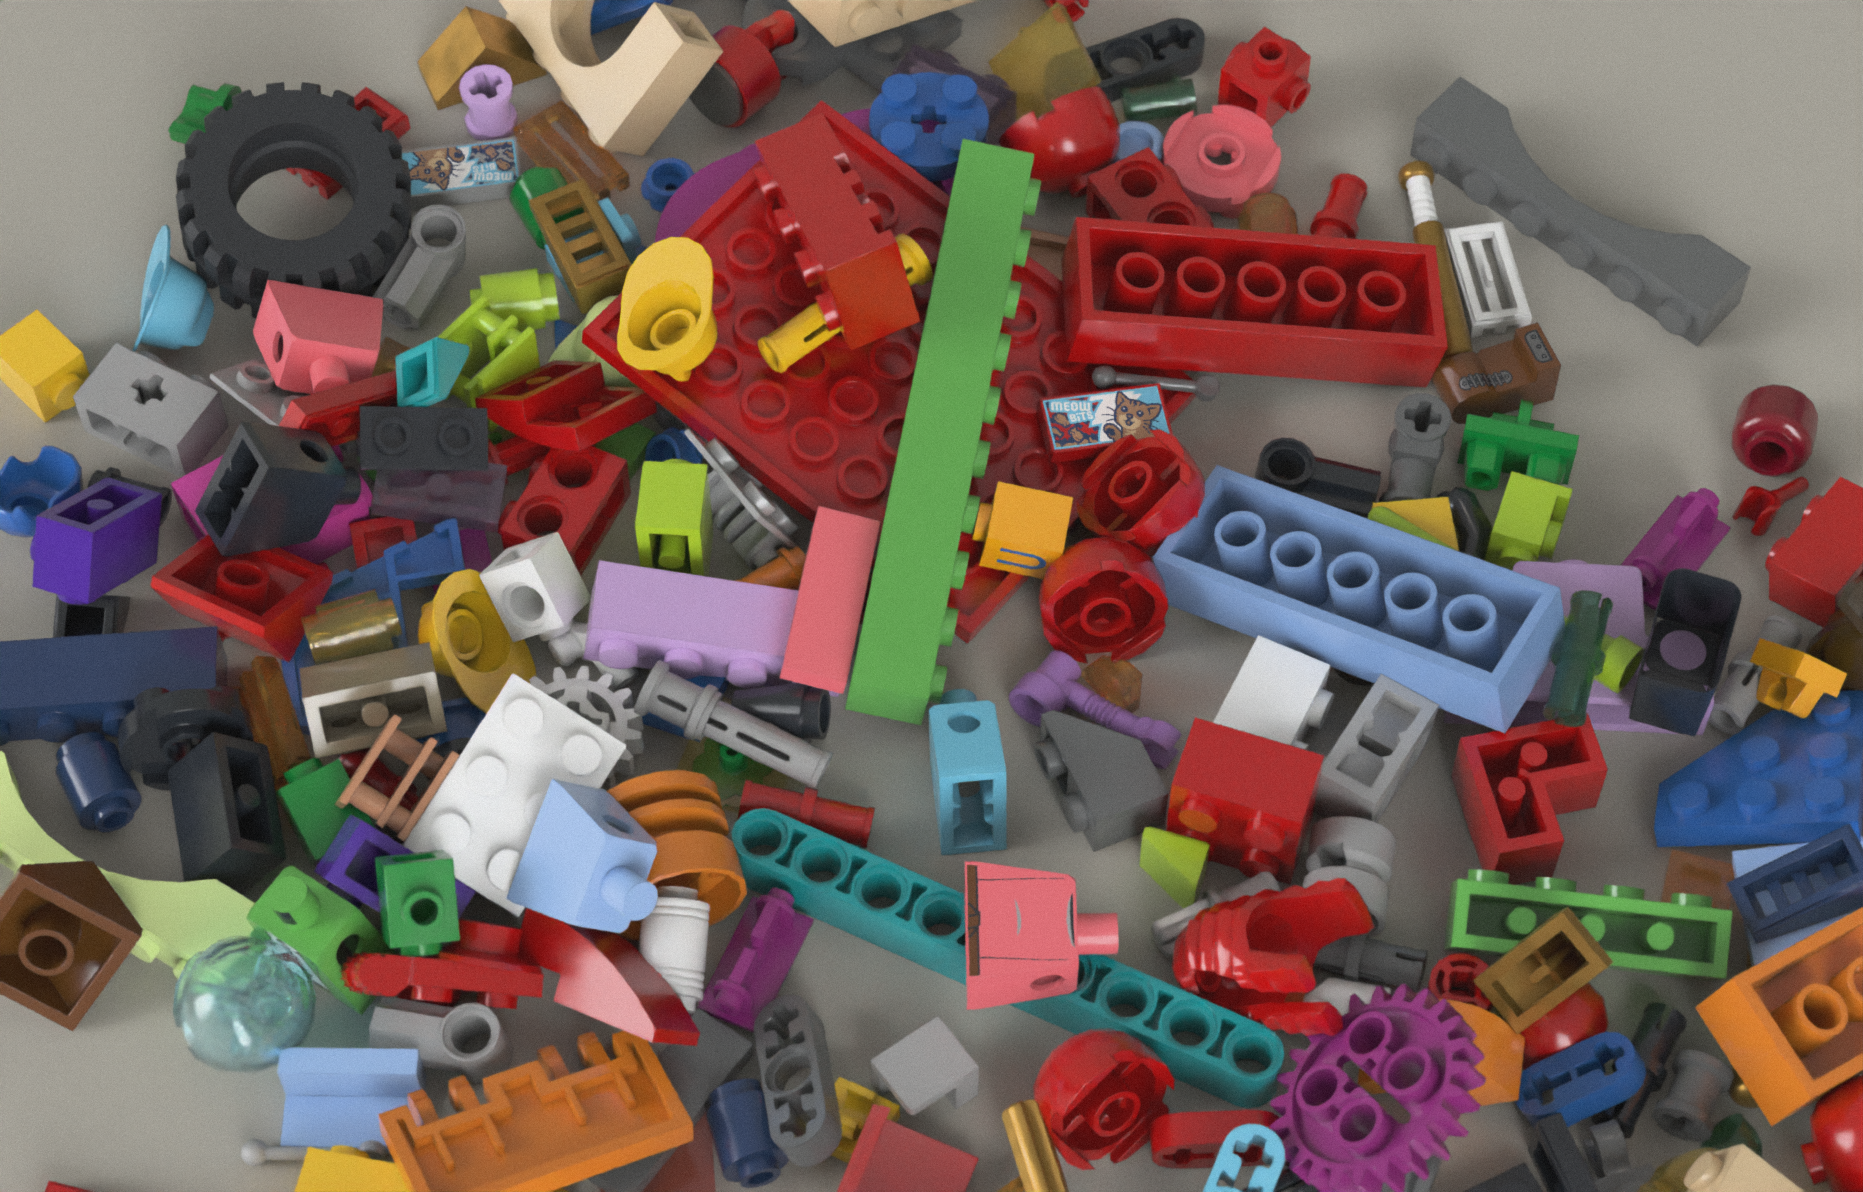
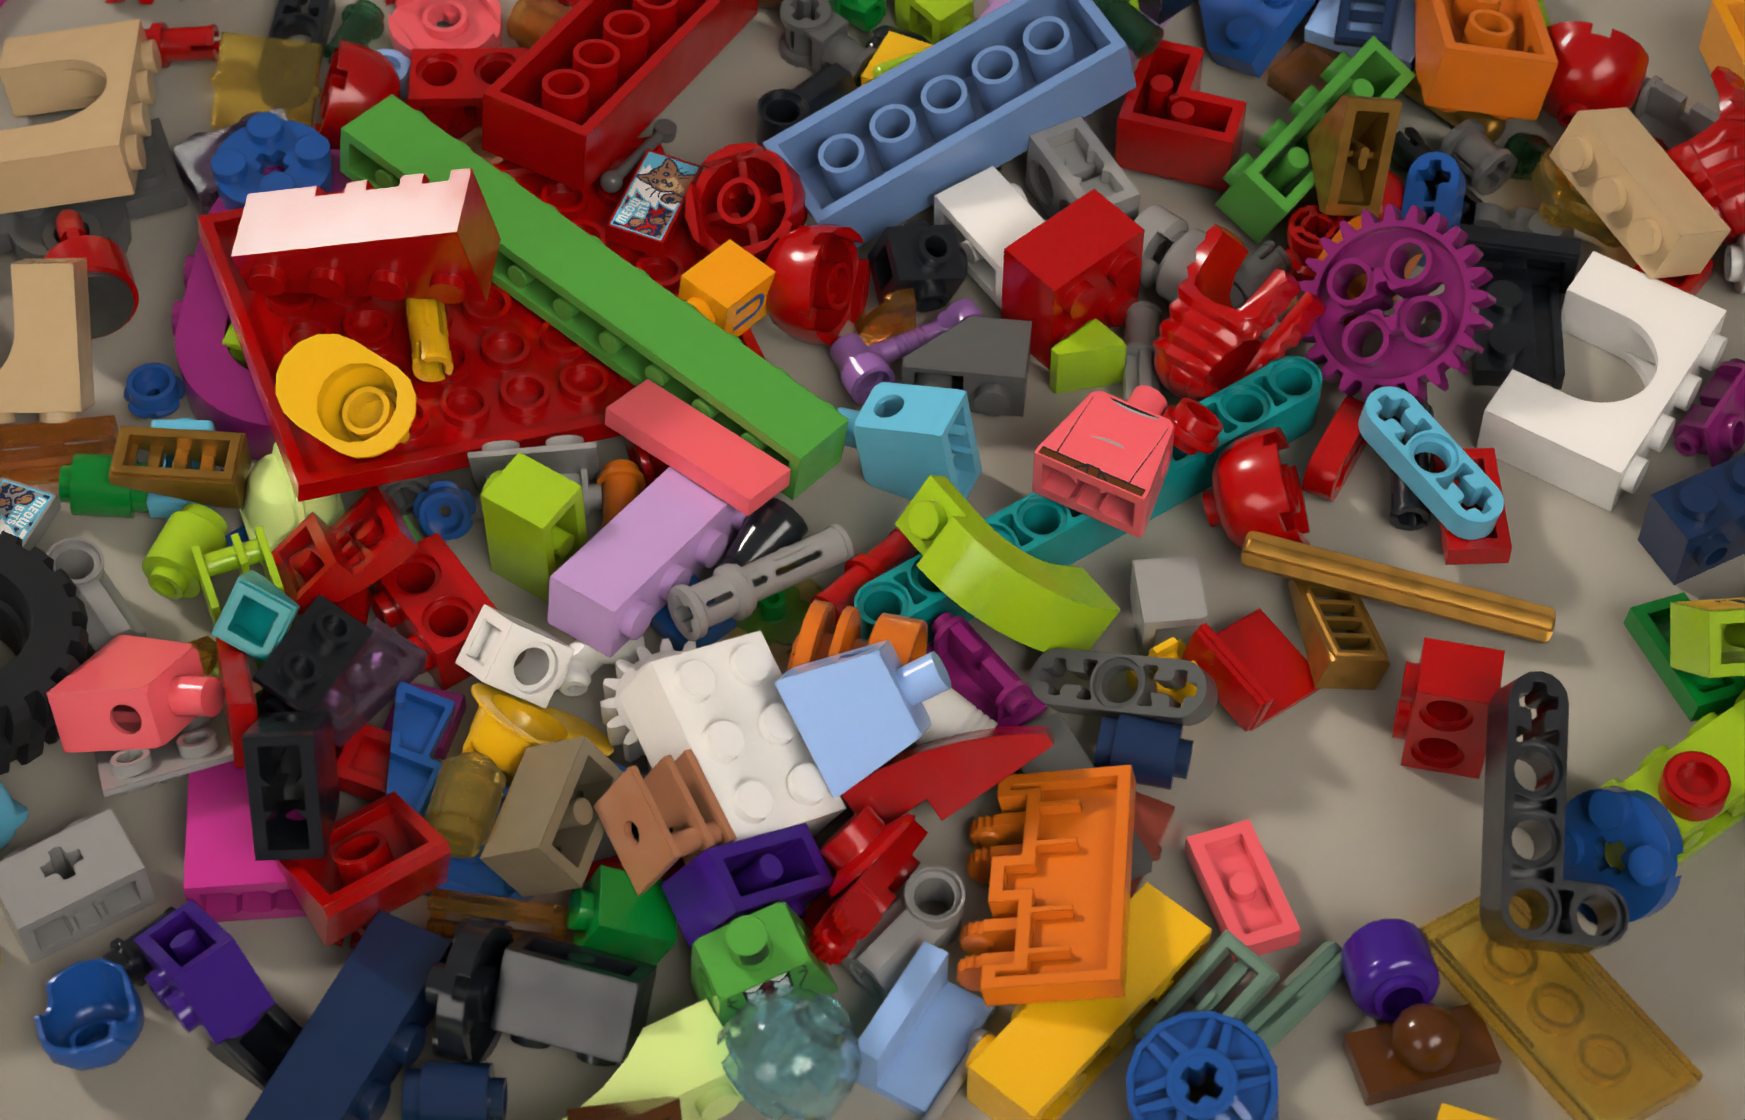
camera: 60 degrees left, 5 degrees down
(417, 901) = (806, 851): green brick -> none
(823, 921) = (997, 581): none -> lime arch
(1108, 986) = (1194, 427): none -> red plate
(1179, 646) = (920, 259): none -> black brick

